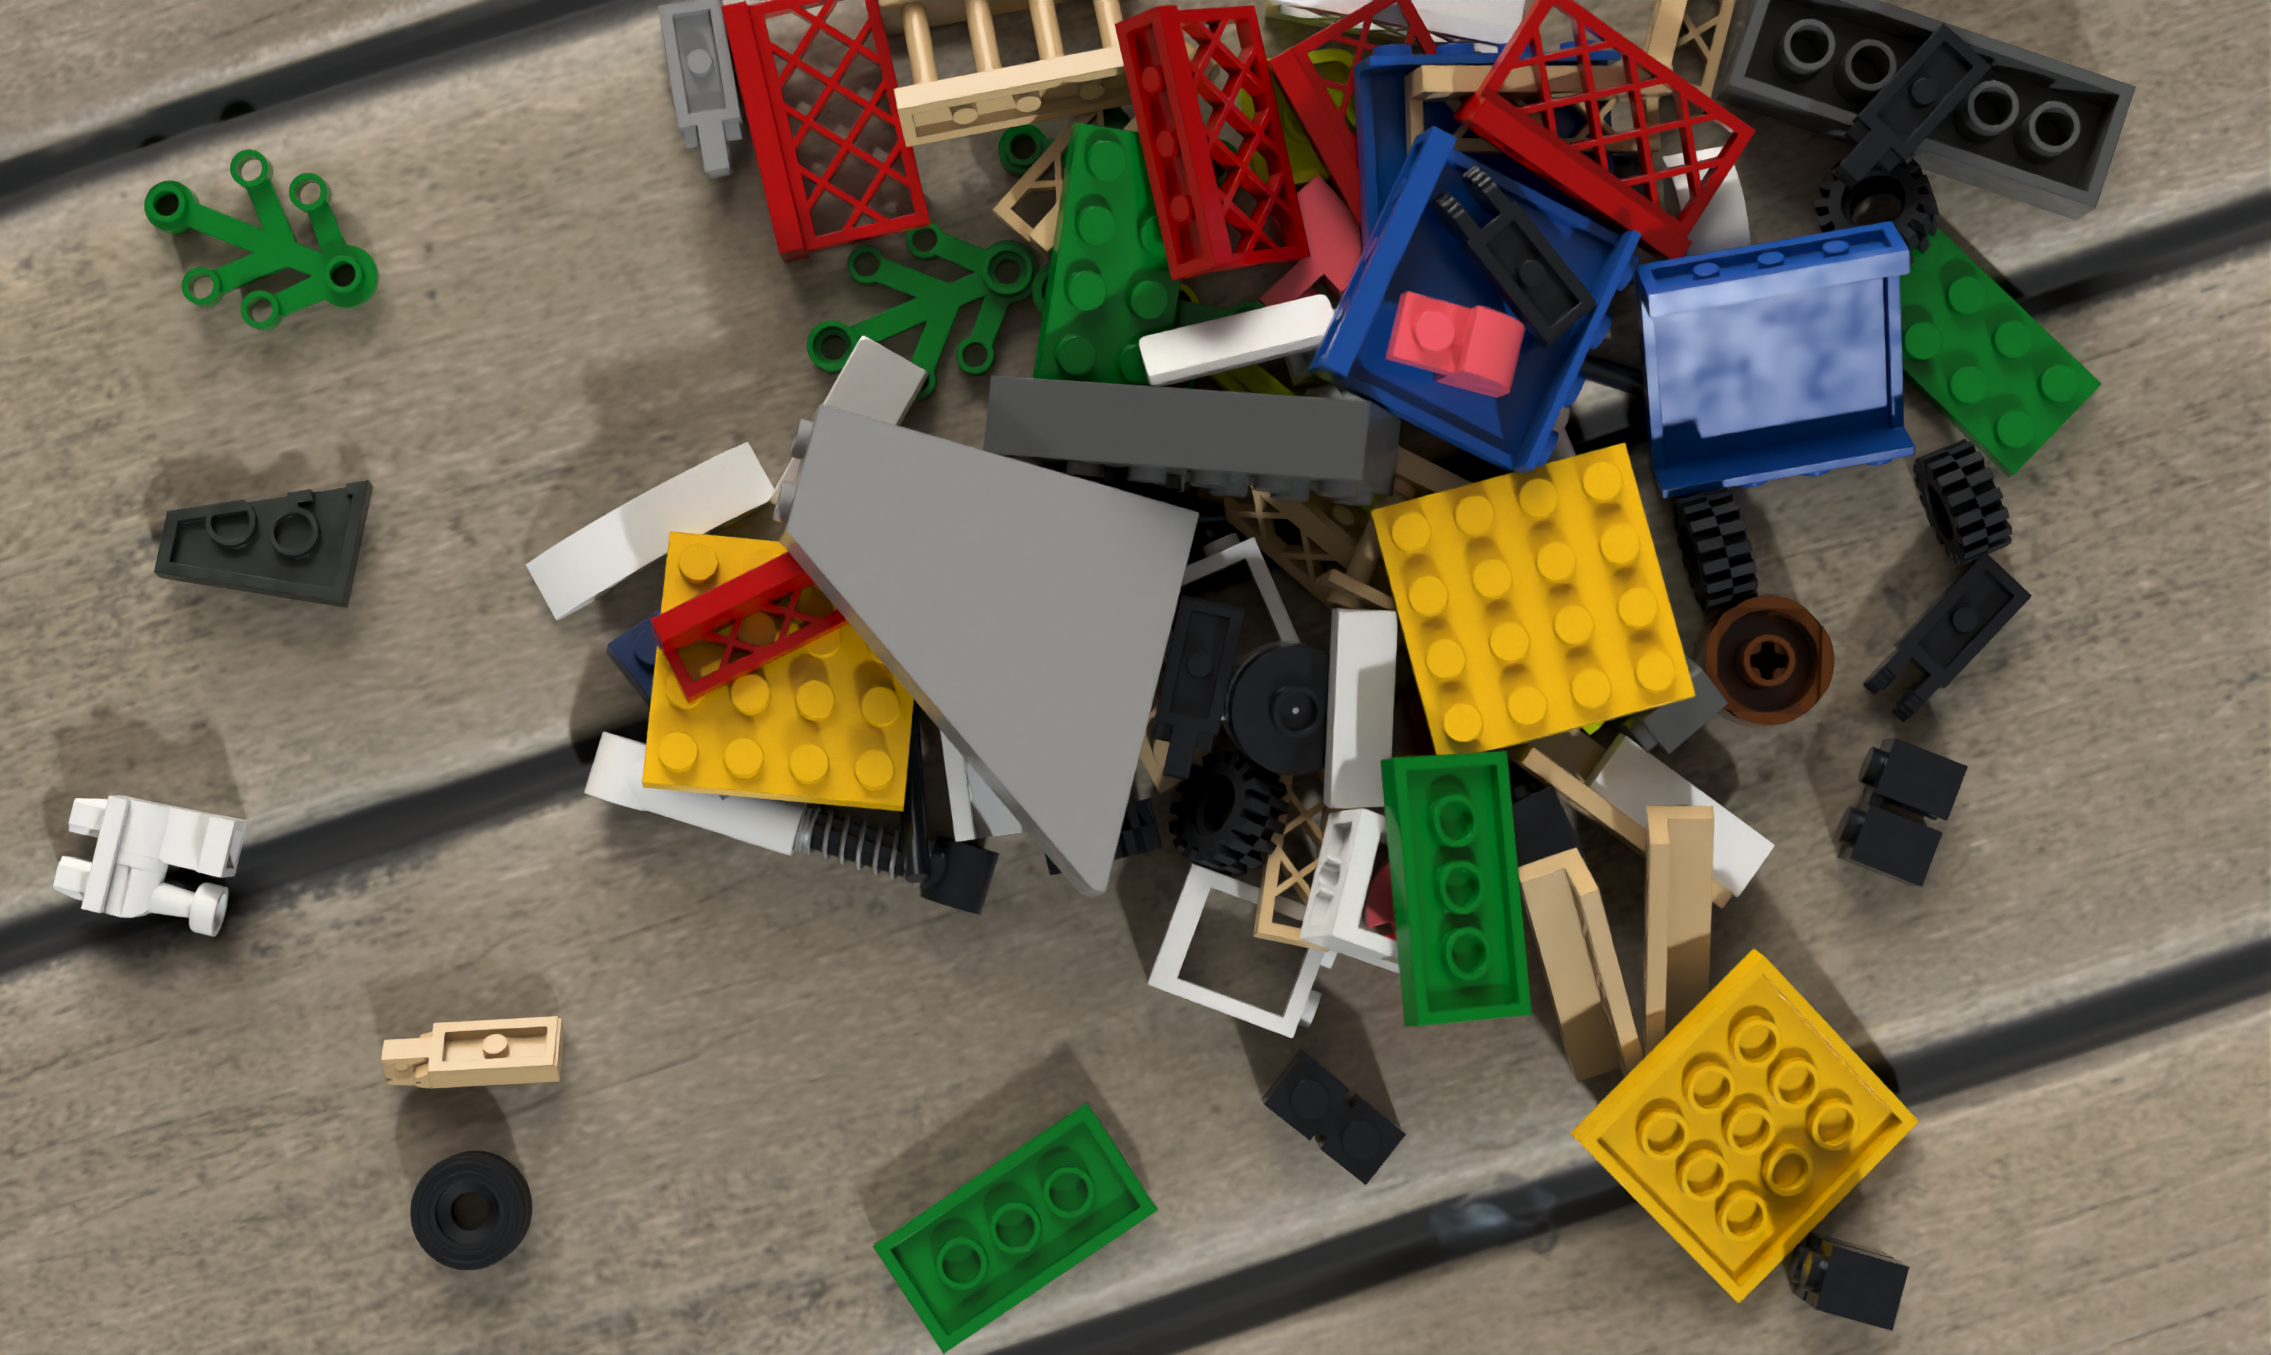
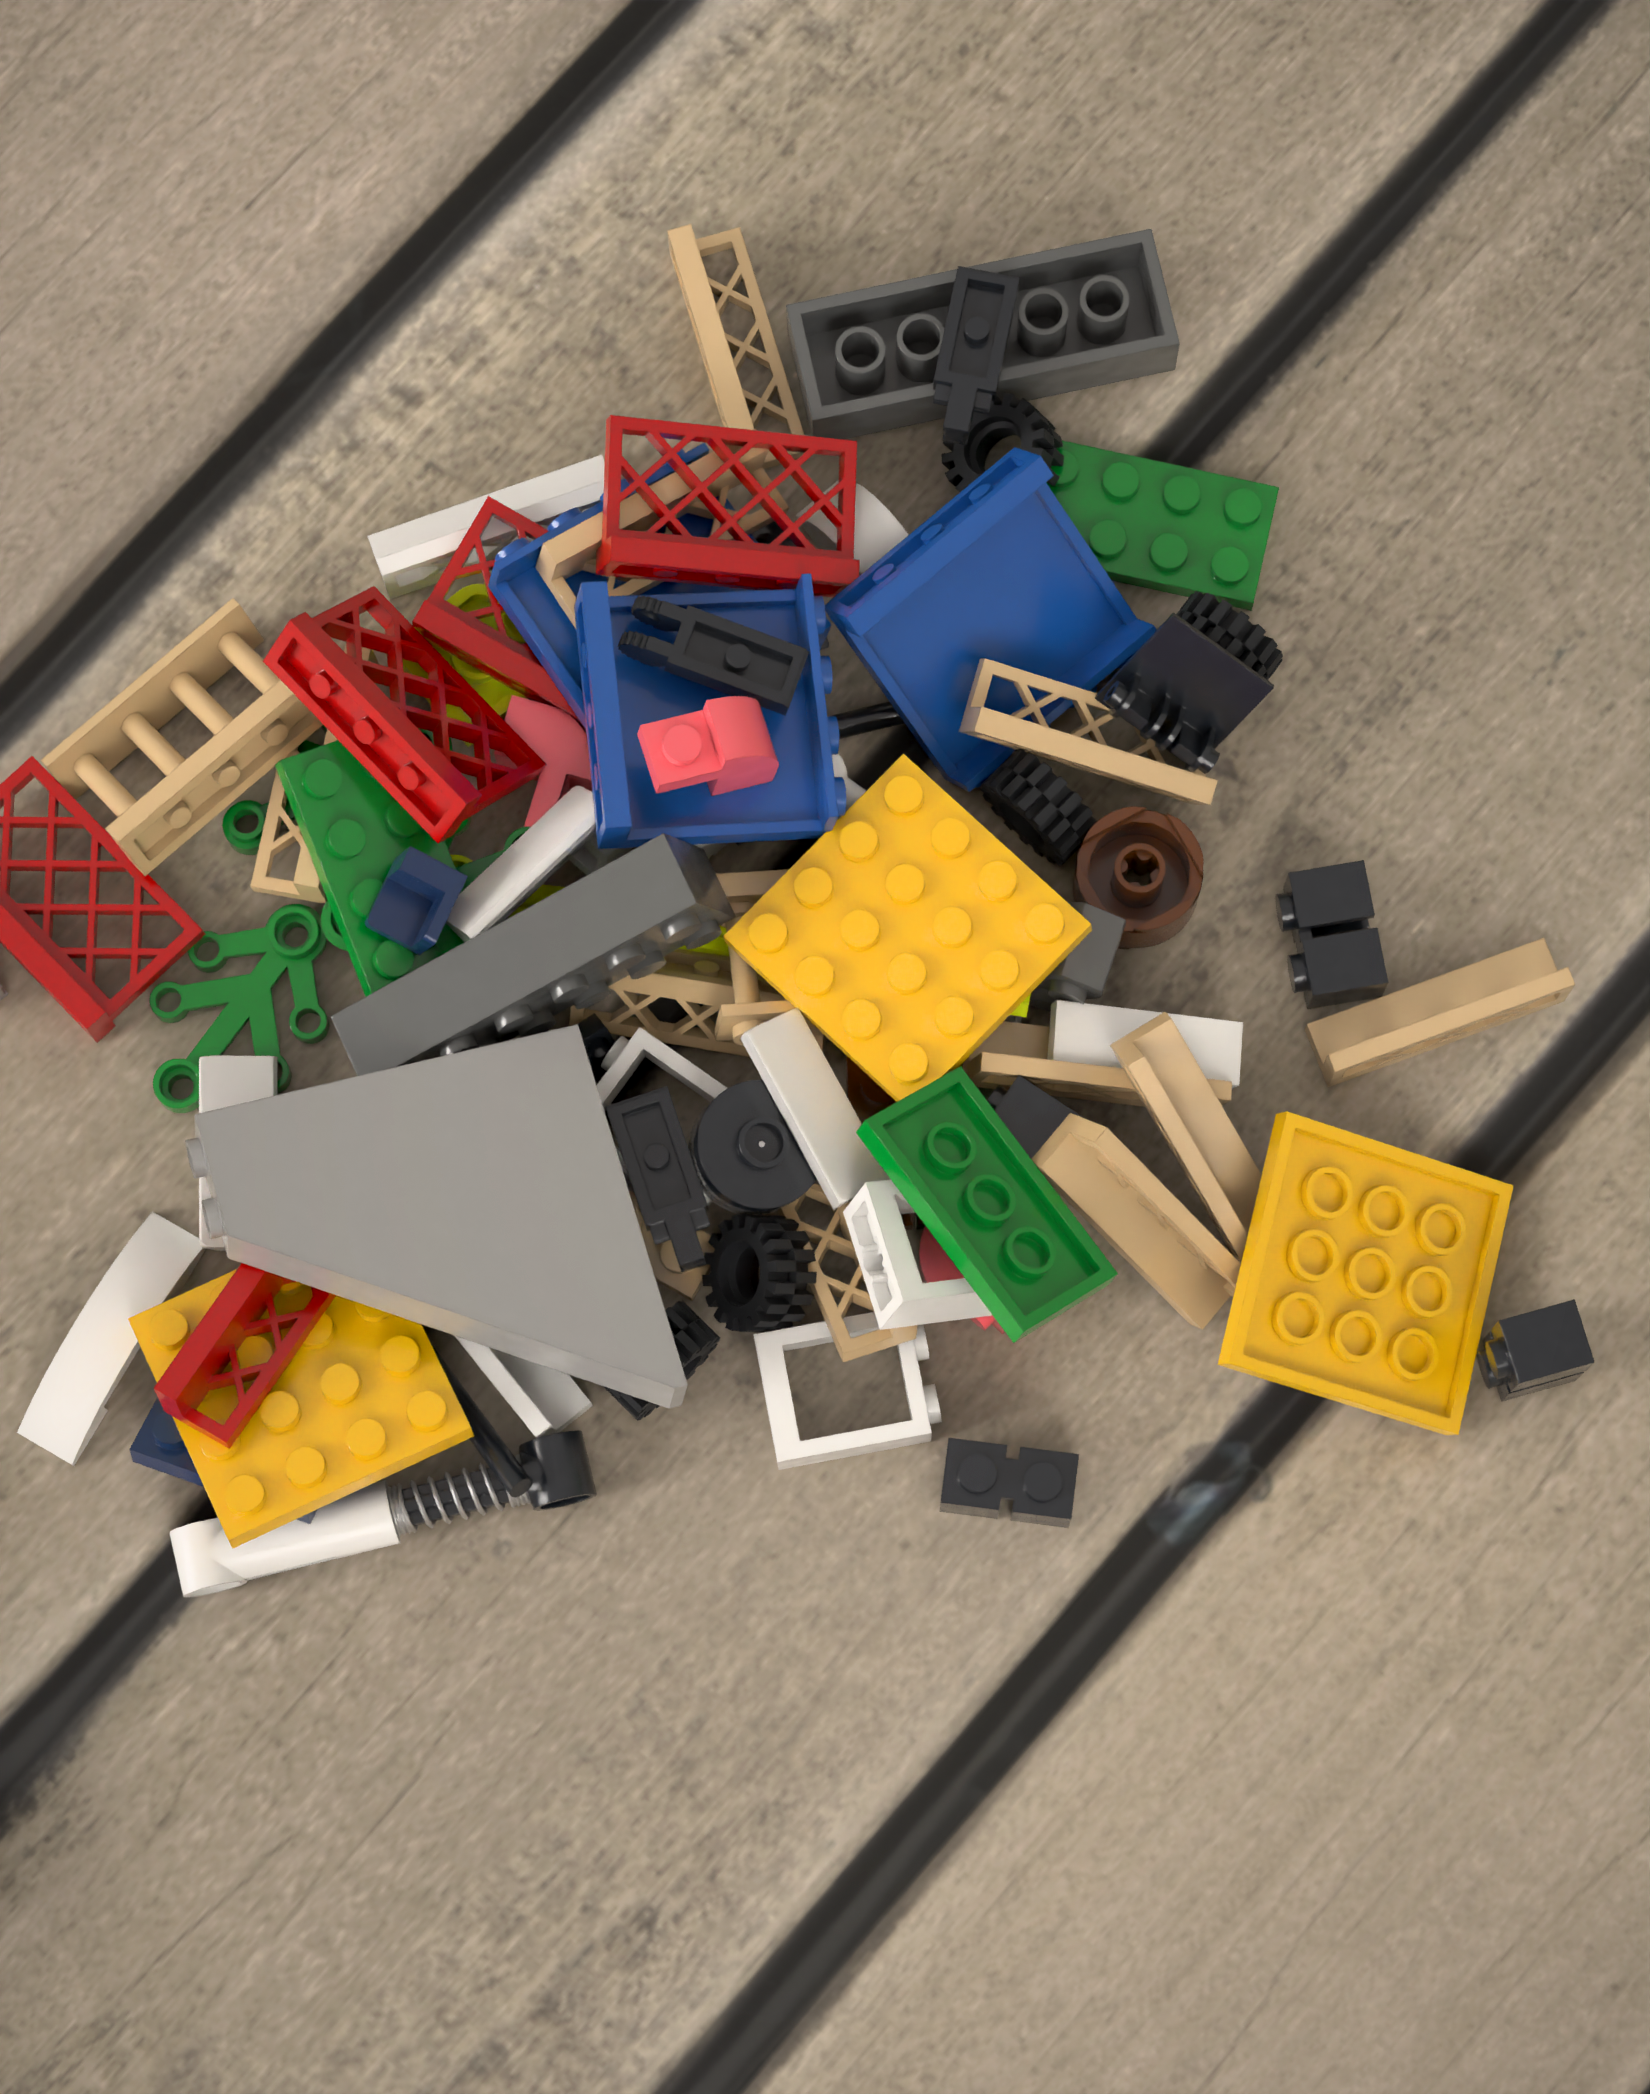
camera: 30 degrees left, 10 degrees down
(435, 1219) = (258, 2024): black tyre -> none
(478, 1054) = (220, 1886): tan hinge -> none
(1015, 1227) = (790, 1750): green plate -> none
(1123, 319) = (415, 900): none -> dark blue panel
(1791, 535) = (1070, 748): none -> tan fence
(1903, 529) = (1184, 693): none -> black hinge
(1949, 930) = (1437, 1012): none -> tan fence
(1951, 632) = (1283, 762): black hinge -> none

